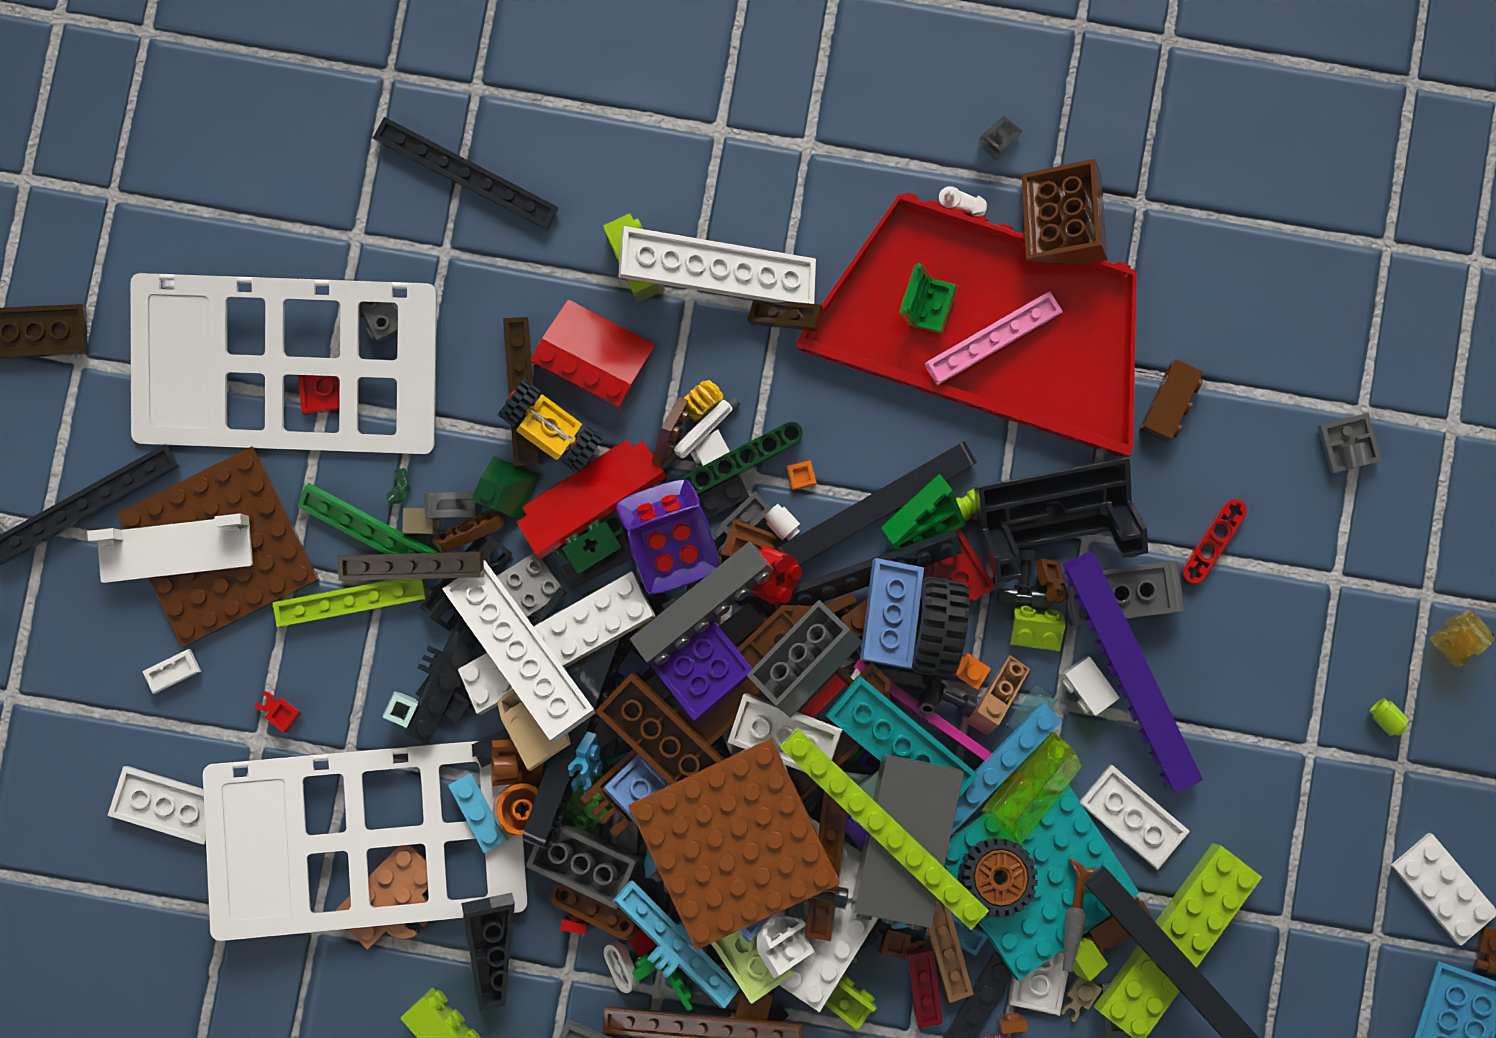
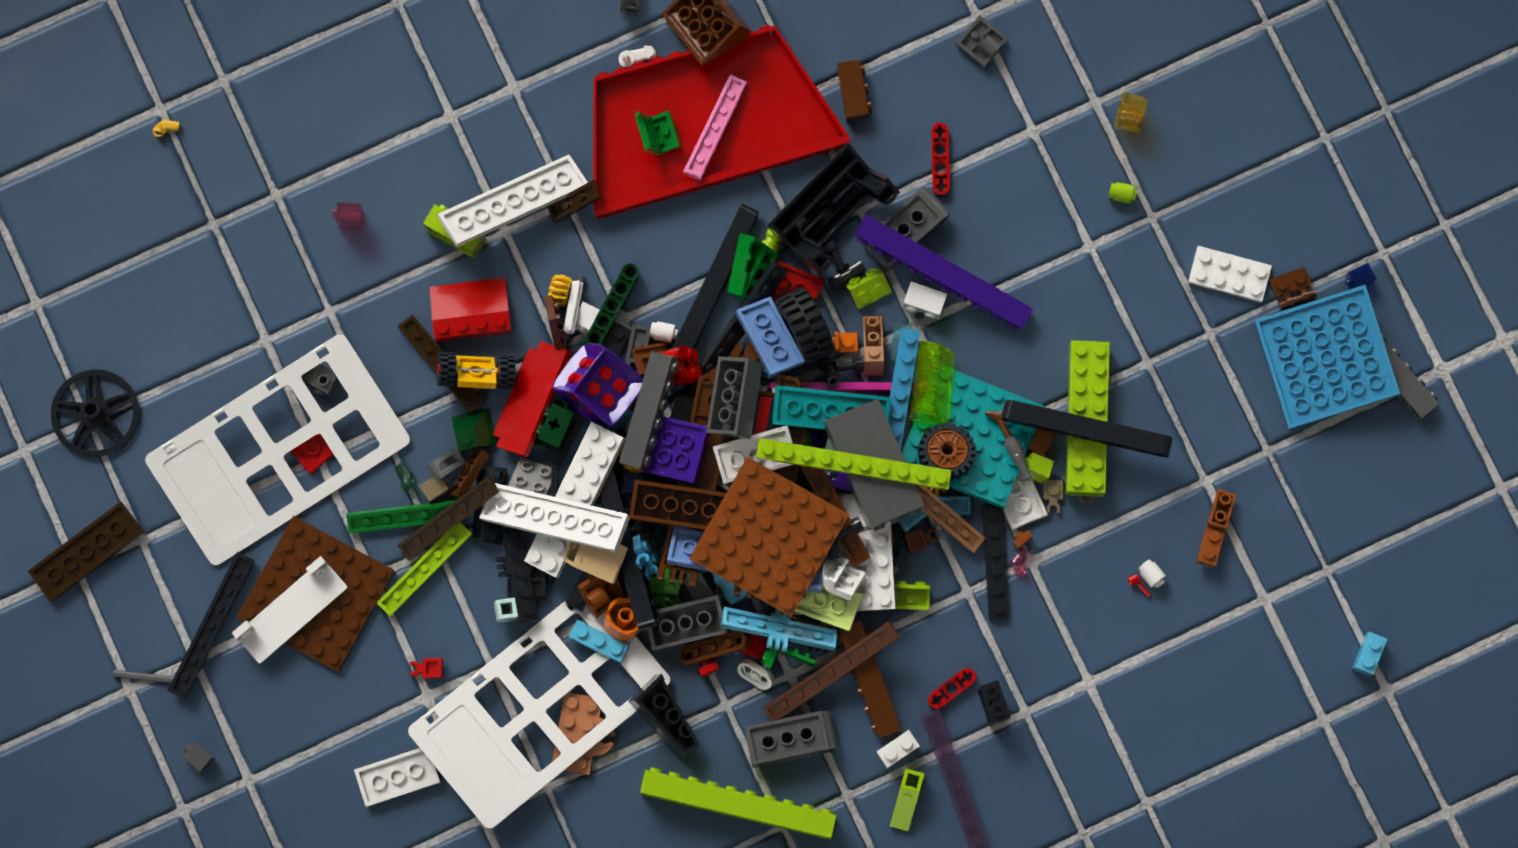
camera: 35 degrees left, 5 degrees down
(123, 190) = (95, 413): none -> black wheel
(171, 671) = (342, 691): white plate -> none
(465, 173) = (308, 252): black plate -> none
(533, 163) = (349, 216): none -> clear pink brick
(801, 475) = (654, 295): orange tile -> none
(924, 987) = (952, 554): dark red plate -> none
(1051, 576) = (853, 249): reddish brown plate -> none
(1134, 817) = (1009, 362): white tile -> none

